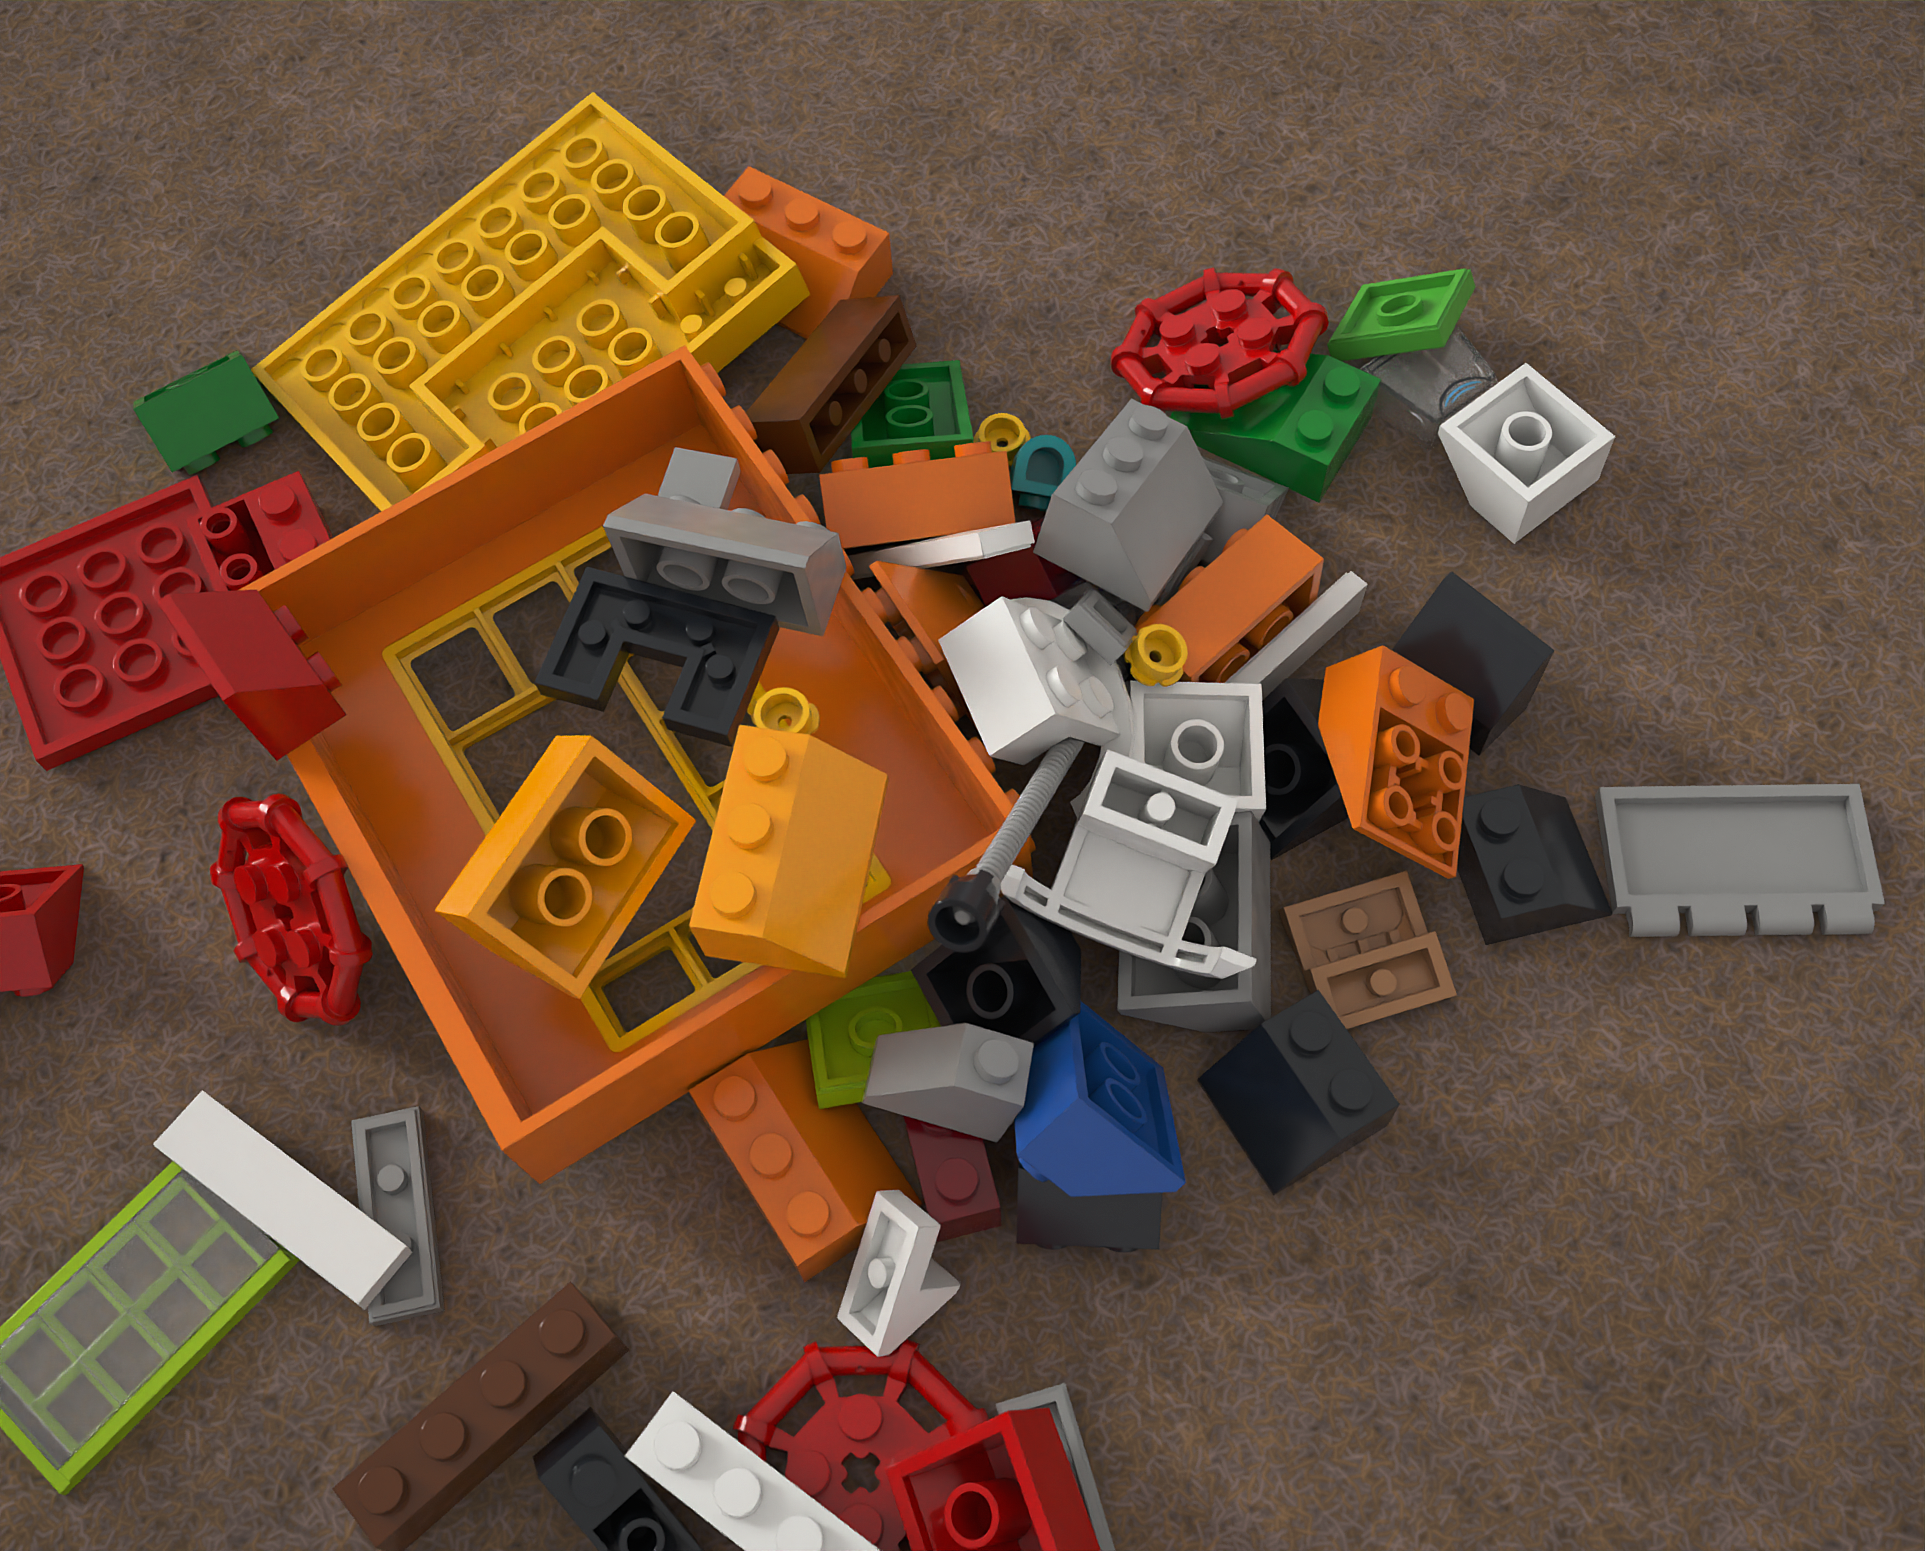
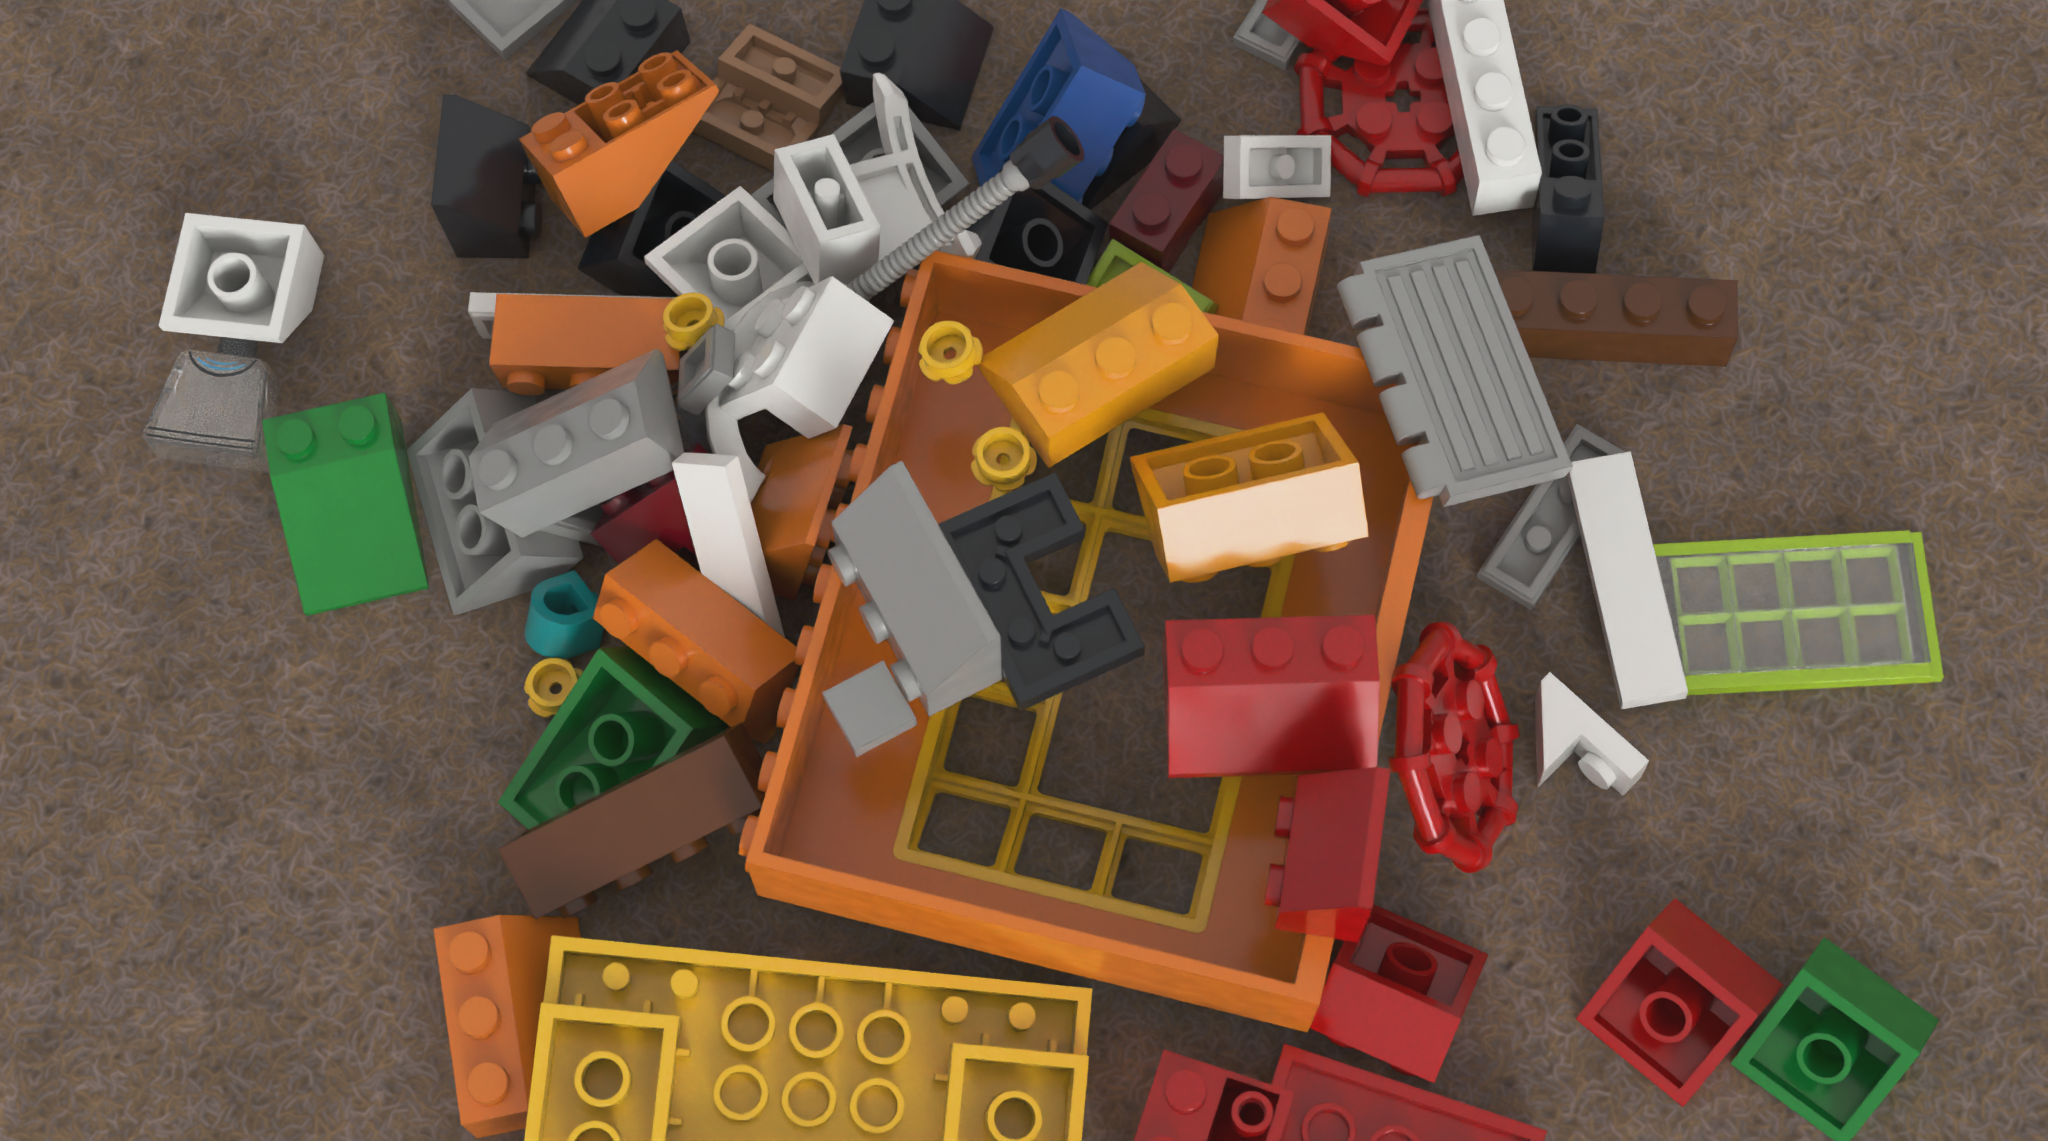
camera: 130 degrees left, 5 degrees up
(203, 758) = (1399, 993): none -> red slope
(233, 1045) = (1570, 726): none -> white slope
(419, 748) = (1270, 695): none -> red slope
(506, 1147) = (1456, 370): none -> light grey hinge
(913, 737) = (943, 338): none -> yellow plate
(951, 1077) = (1130, 201): light grey slope -> none
(1190, 341) = (283, 598): red plate -> none
(1402, 315) = (172, 466): bright green tile -> none

